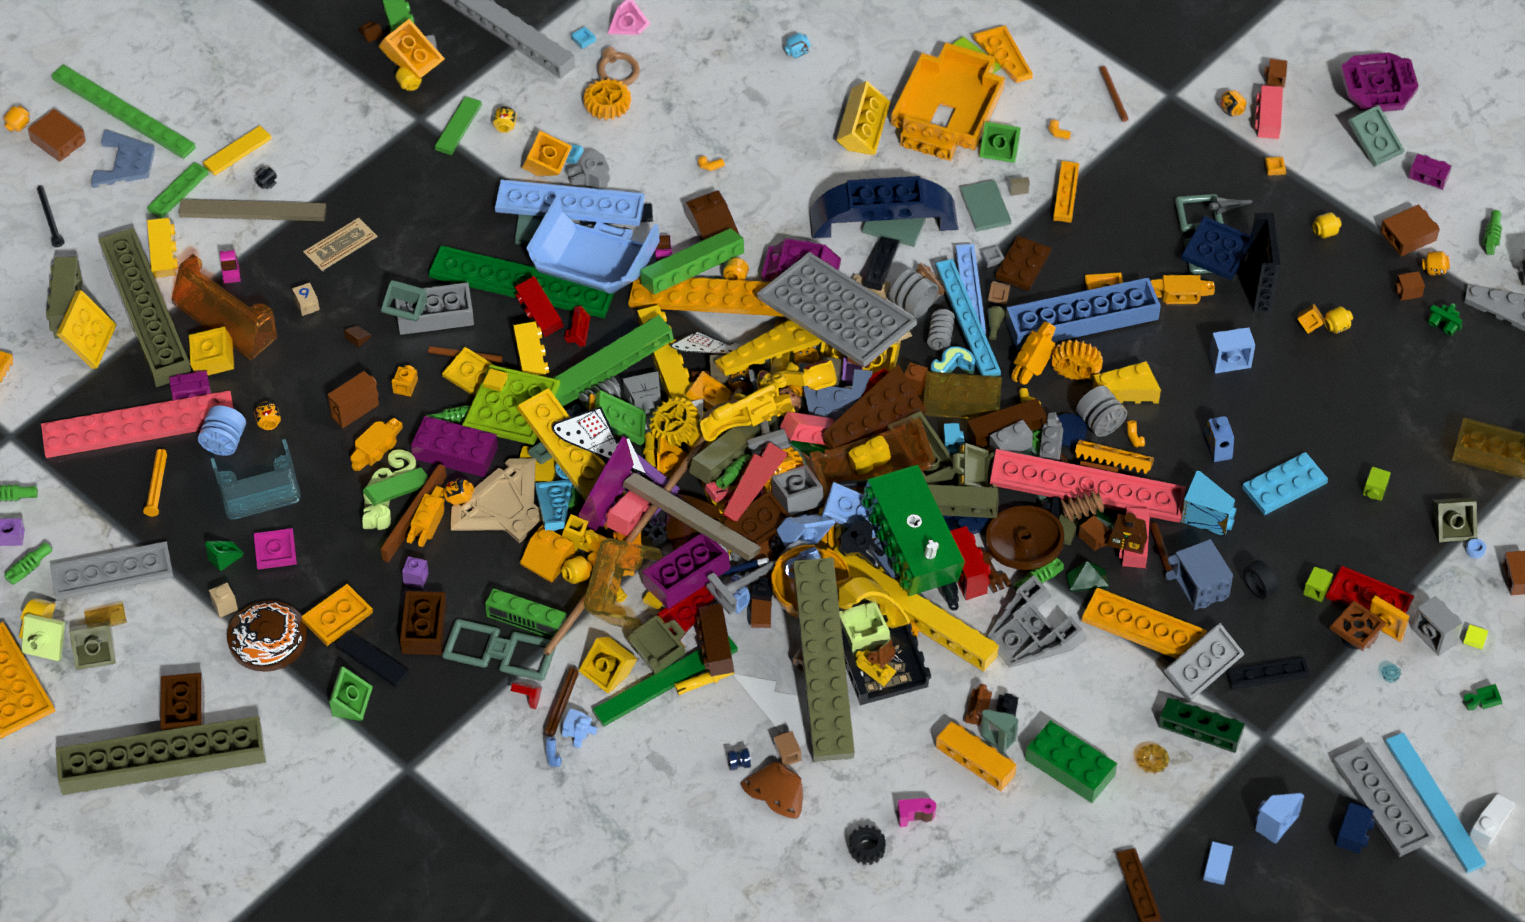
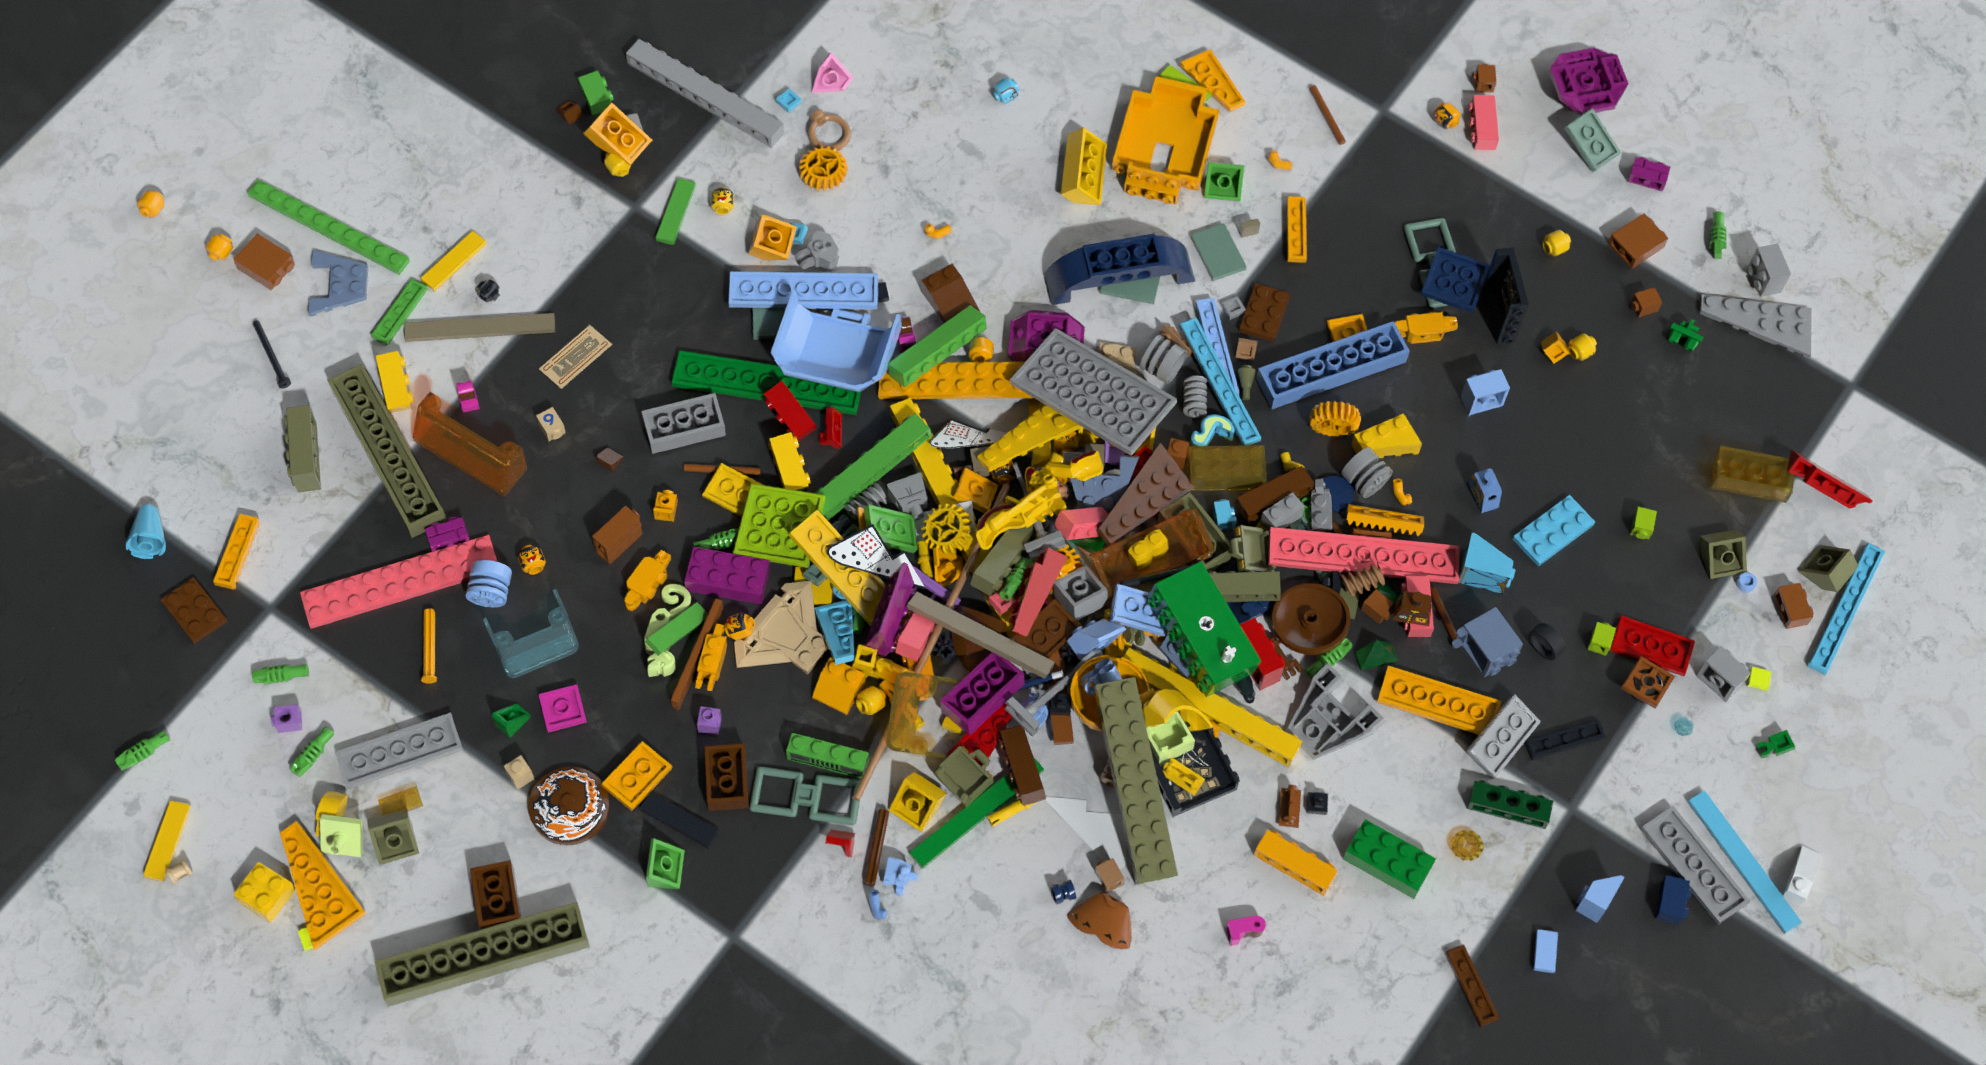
camera: 10 degrees left, 10 degrees up
(86, 329) = (331, 484): yellow plate -> none
(211, 351) = (464, 494): yellow container -> none
(405, 293) = (656, 413): sand green tile -> none
(495, 380) = (759, 501): yellow tile -> none
(858, 546) = (1152, 646): black hinge -> none
(870, 834) = (1209, 960): black tyre -> none
(881, 263) = (1125, 328): black tile -> none
(882, 654) = (1189, 764): dark orange hinge -> none
(1007, 728) = (1317, 834): sand green tile -> none
(1034, 354) = (1292, 416): light orange hinge -> none
(1222, 204) = (1453, 230): dark grey piece -> none
(1275, 166) = (1496, 180): light orange tile -> none
(1395, 619) = (1683, 672): light orange tile -> none
(1436, 263) = (1668, 275): light orange head -> none

